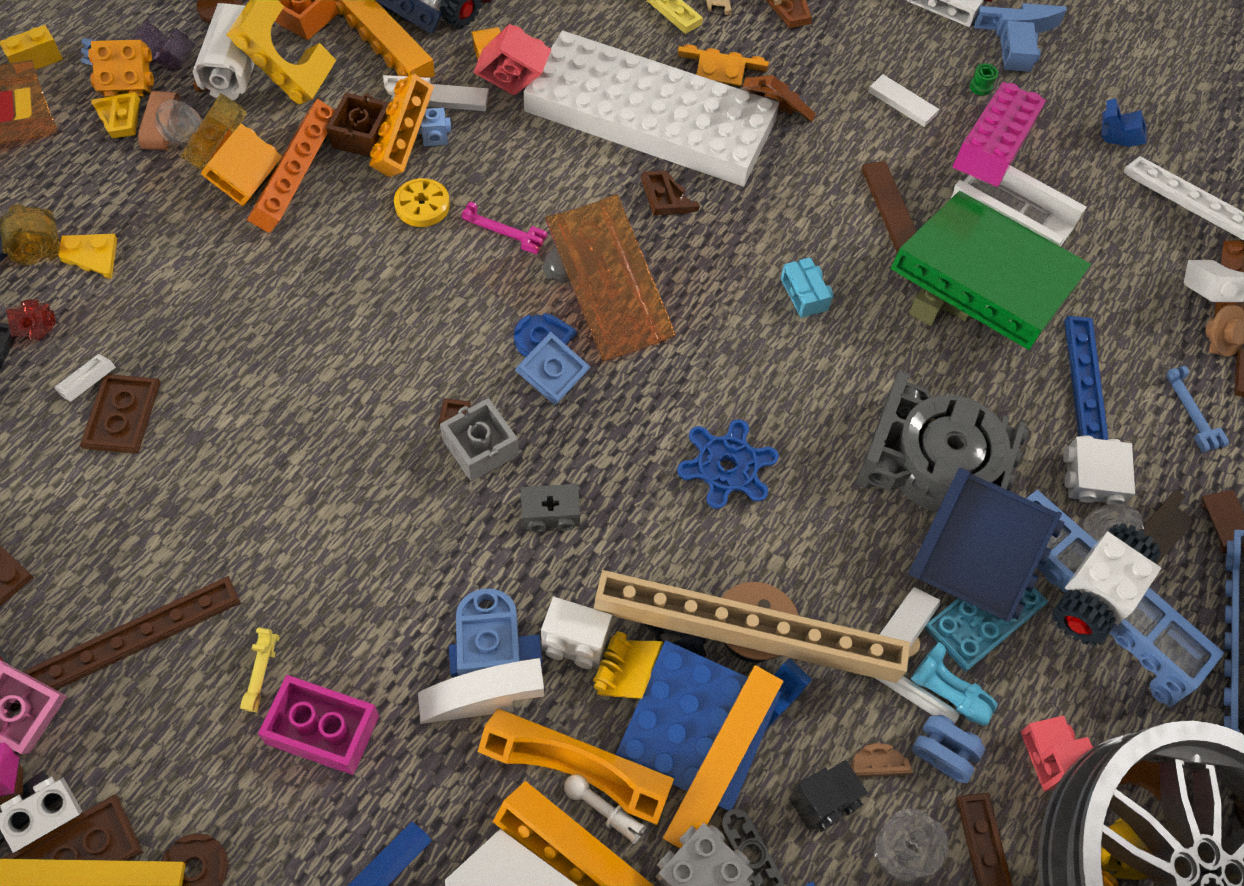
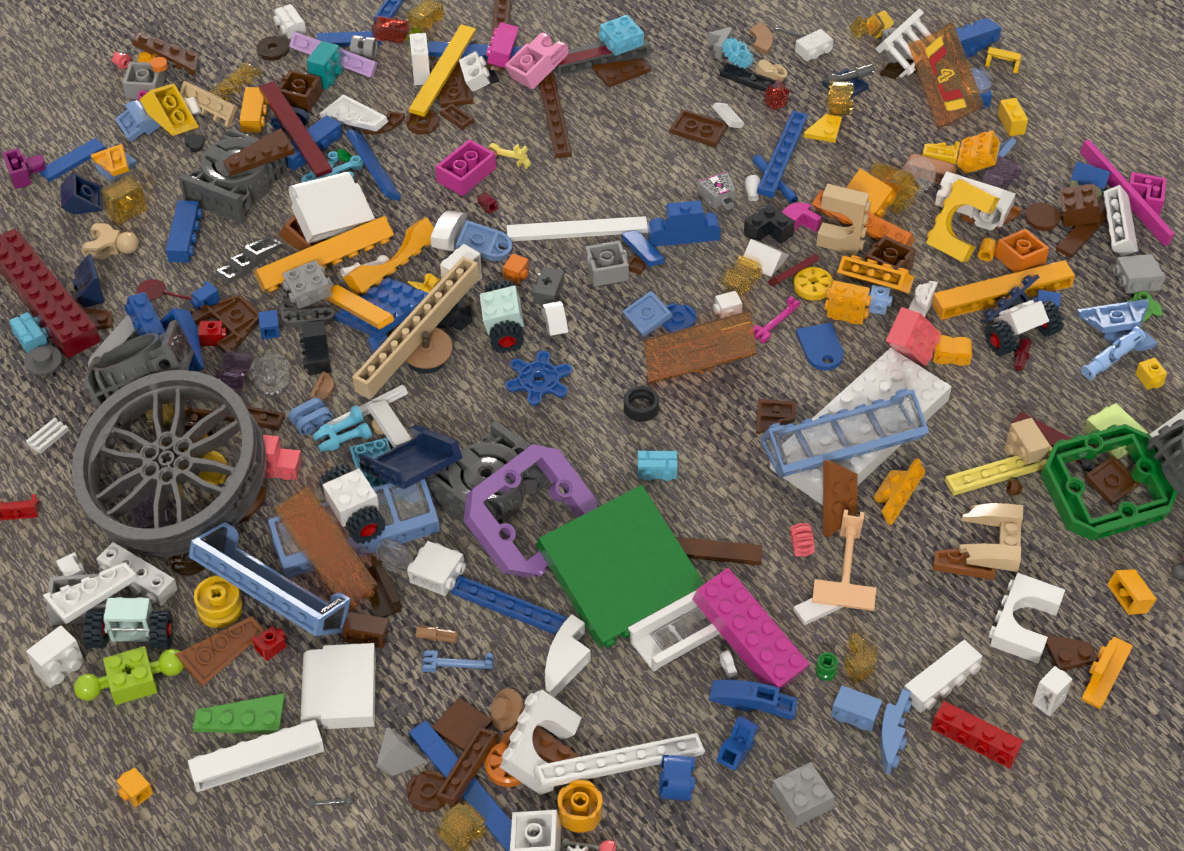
camera: 115 degrees right, 10 degrees down
(166, 285) = (782, 154): none -> blue tile
(176, 814) = (455, 118): none -> reddish brown tile
(197, 306) = (784, 189): none -> blue piece
(250, 307) = (752, 183): none -> white cone
(271, 345) = (717, 190): none -> light grey torso
(298, 240) = (802, 215): none -> dark pink brick
(300, 42) = (987, 249): none -> light orange gear
(322, 150) = (854, 206): none -> tan arch
(326, 268) = (769, 222): none -> black brick
(374, 364) = (683, 225): none -> blue brick
(388, 665) = (487, 202): none -> dark red piece
(389, 263) = (767, 256): none -> white slope
(406, 518) = (580, 228): none -> white tile
(407, 224) = (793, 270): none -> dark red tile
(423, 409) = (643, 248): none -> tile
(435, 273) = (742, 276): none -> clear yellow brick
(459, 148) = (848, 302): none -> light orange brick
(502, 279) = (727, 304): none -> white brick
(528, 175) = (821, 343): none -> blue tile
(530, 564) = (516, 269): none -> orange brick
(612, 472) = (555, 318): none -> white brick
(643, 537) = (502, 316): none -> brick
(699, 95) = (845, 434): none -> window
(710, 348) = (641, 415): none -> black tyre
(844, 124) = (802, 539): none -> coral gear
(885, 77) = (844, 593): none -> light nougat piece
(960, 52) = (863, 661): none -> clear yellow brick
(1029, 413) = (488, 530): none -> medium lavender panel
(1032, 158) = (728, 664): none -> white tile
(1065, 128) = (748, 695): none -> blue slope
(1124, 301) = (566, 656): none -> white slope
(1137, 68) = (802, 794): none -> light grey brick
(1176, 443) = (436, 634): none -> medium nougat axle
(1180, 603) = (325, 547): none -> clear orange brick
(1198, 159) = (676, 778): none -> blue brick

